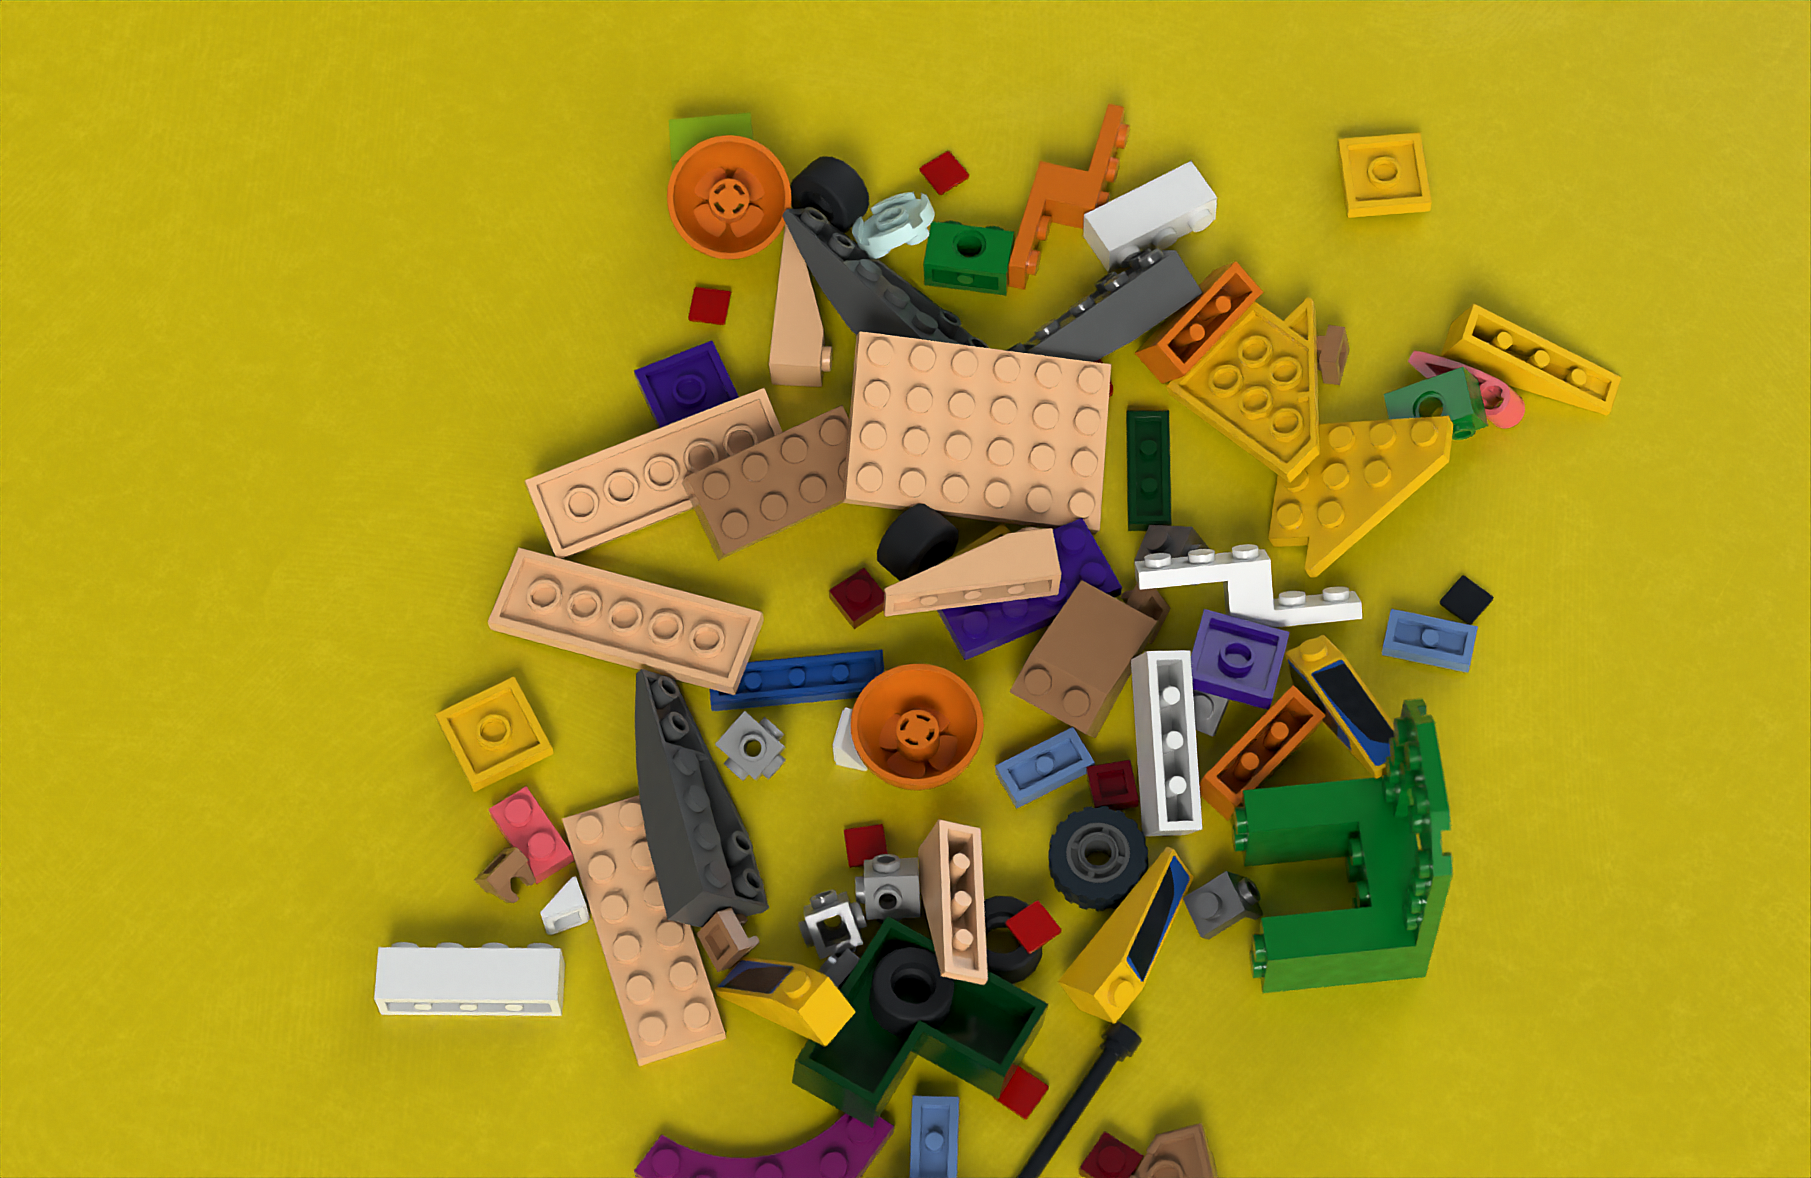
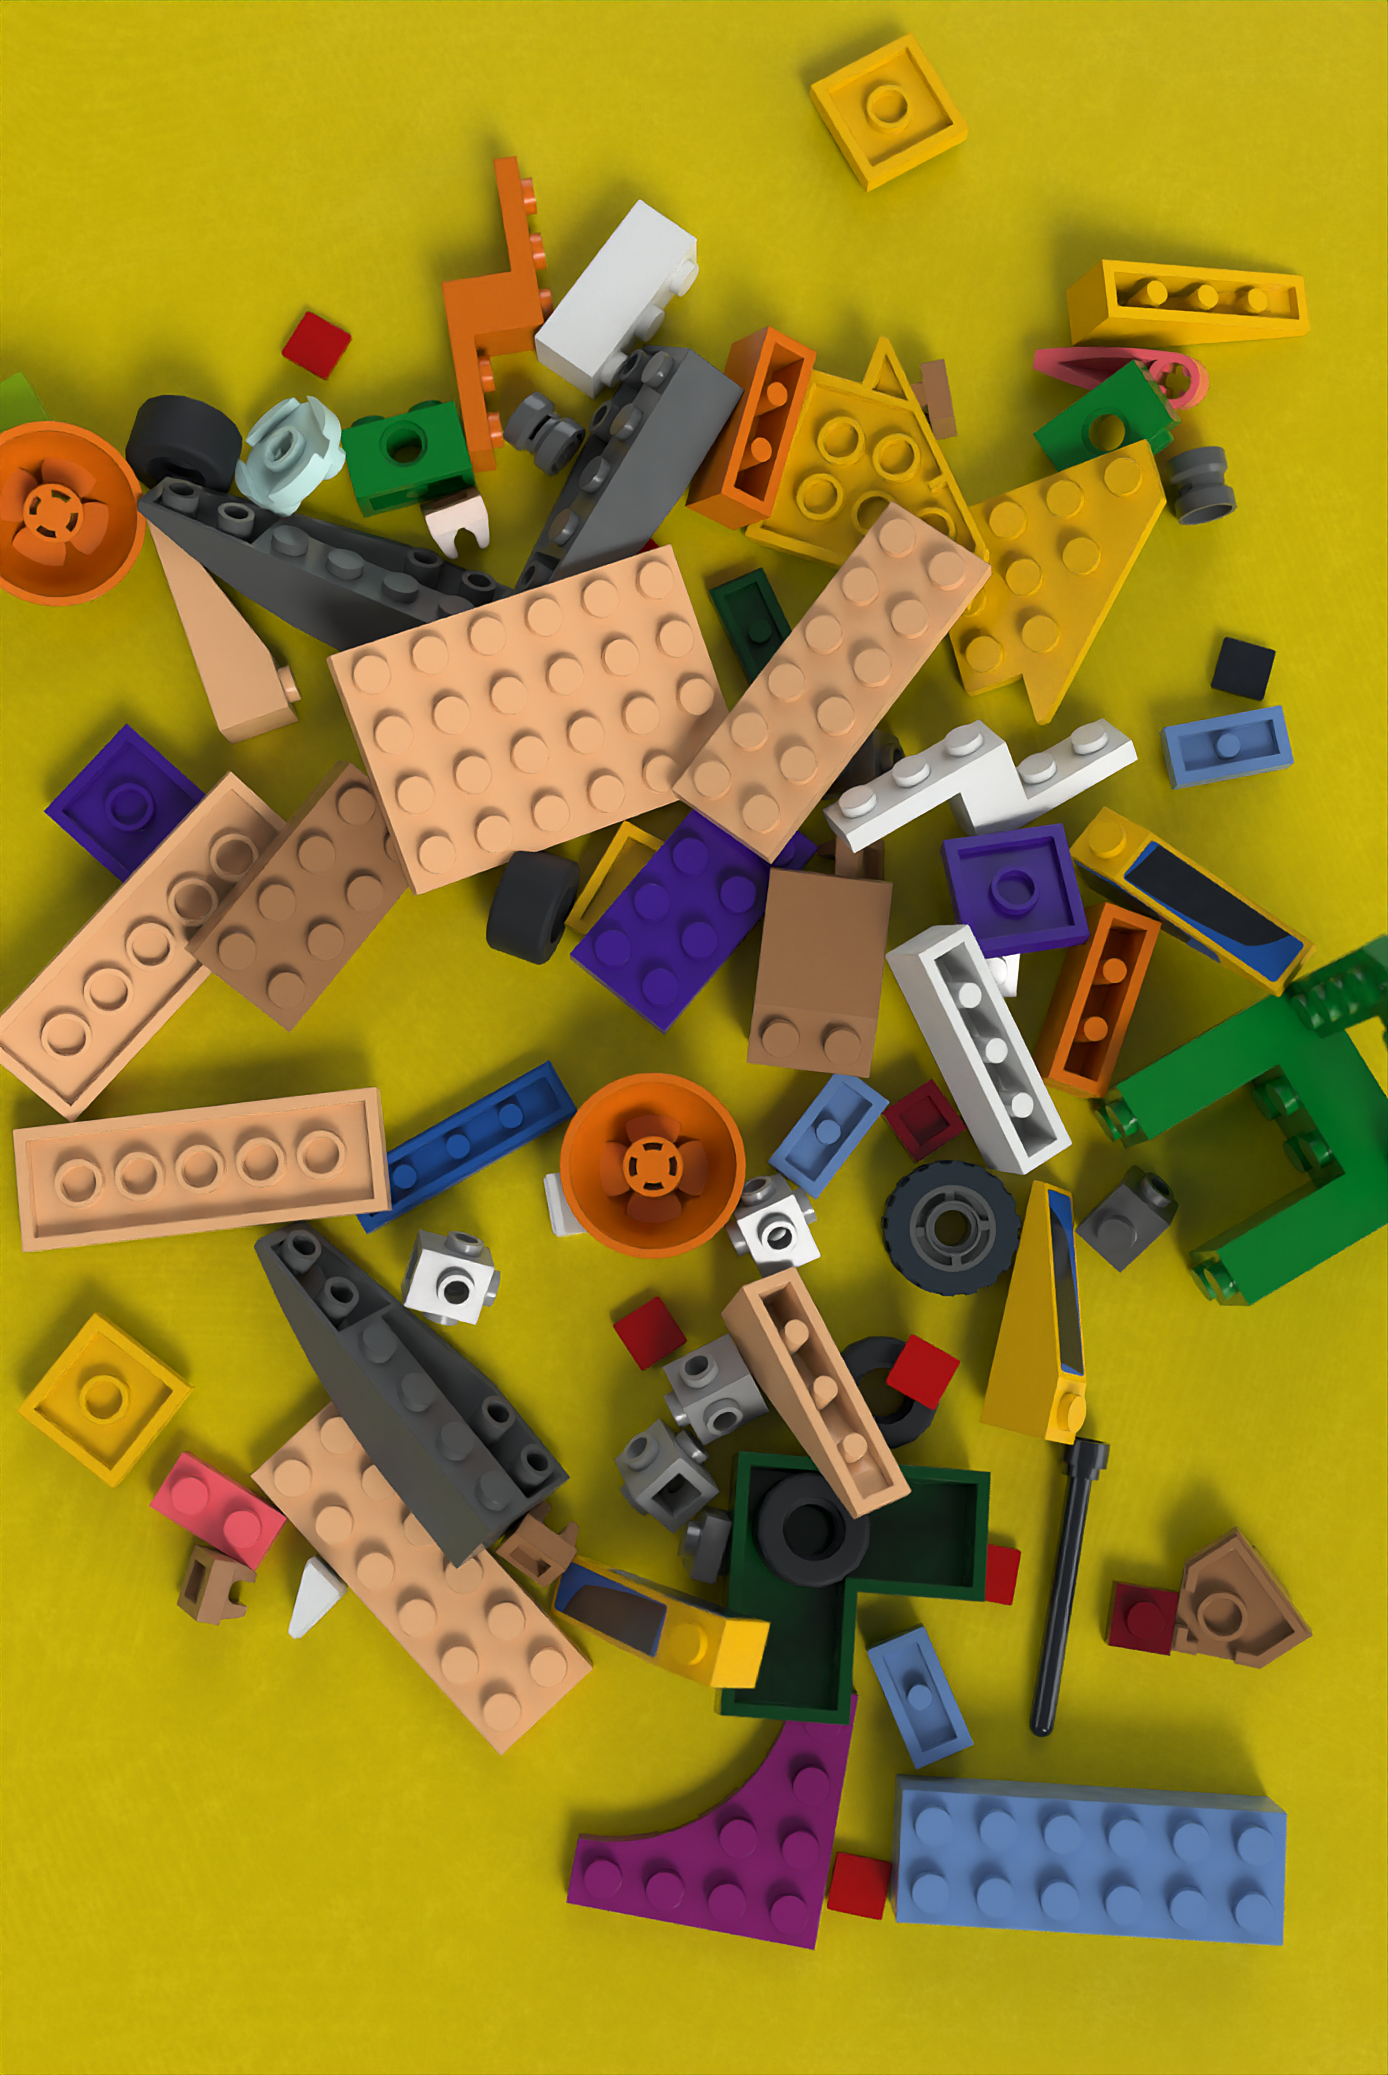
camera: 30 degrees left, 20 degrees up
(470, 980) = (238, 1751): white brick -> none
(709, 306) = (98, 669): red piece -> none
(858, 598) = (485, 999): dark red plate -> none
(986, 817) = (773, 1225): none -> light grey brick
(991, 301) = (454, 512): none -> tile
(999, 571) = (670, 902): light nougat slope -> none
(1063, 275) = (544, 433): none -> dark grey wheel
(1175, 484) = (832, 681): none -> light nougat plate
(1486, 479) = (1201, 485): none -> dark grey wheel

